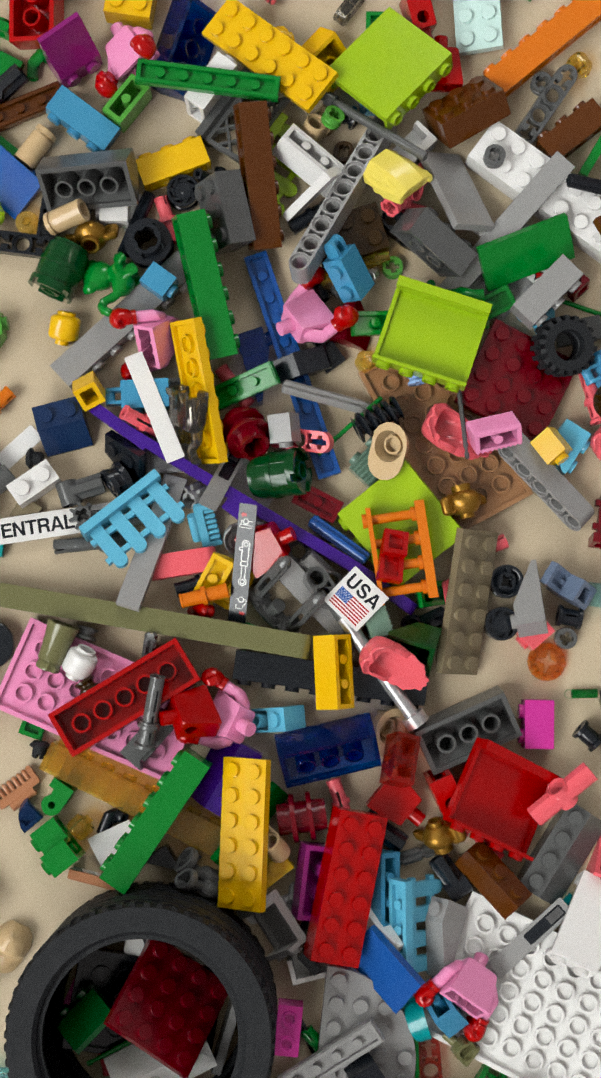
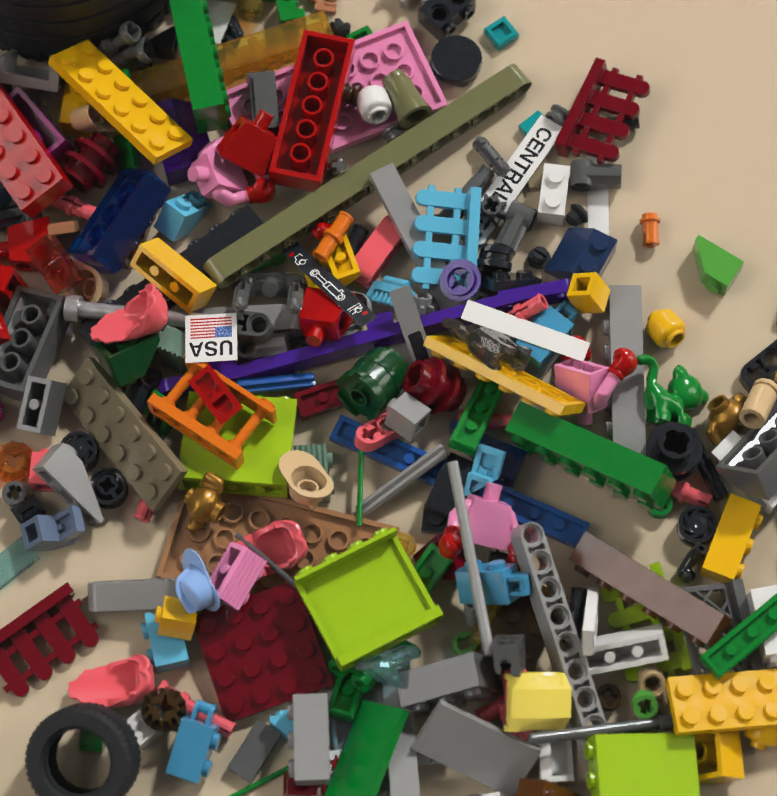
camera: 135 degrees right, 15 degrees down
(43, 552) = (491, 156): none -> dark grey axle
(60, 269) = (718, 362): dark green piece -> none
(87, 456) = (538, 258): none -> black piece
(148, 724) = (273, 103): dark grey pin -> none
(159, 282) = (628, 425): dark azure brick -> none
(165, 473) = (461, 268): none -> gear
(226, 201) = (642, 533): dark grey brick -> none
(272, 348) = (486, 468): none -> medium azure slope
(347, 291) = (470, 557): none -> light grey piece
(365, 786) = (63, 227): none -> nougat tile
(370, 421) = (341, 497): black piece -> none
(384, 215) = (509, 650): none -> dark grey hinge
(463, 283) = (385, 665): none -> clear light blue slope
(498, 675) = (41, 405): none -> dark grey brick
(528, 447) = (194, 585): none -> light blue piece
(581, 341) = (230, 698): black tyre -> none

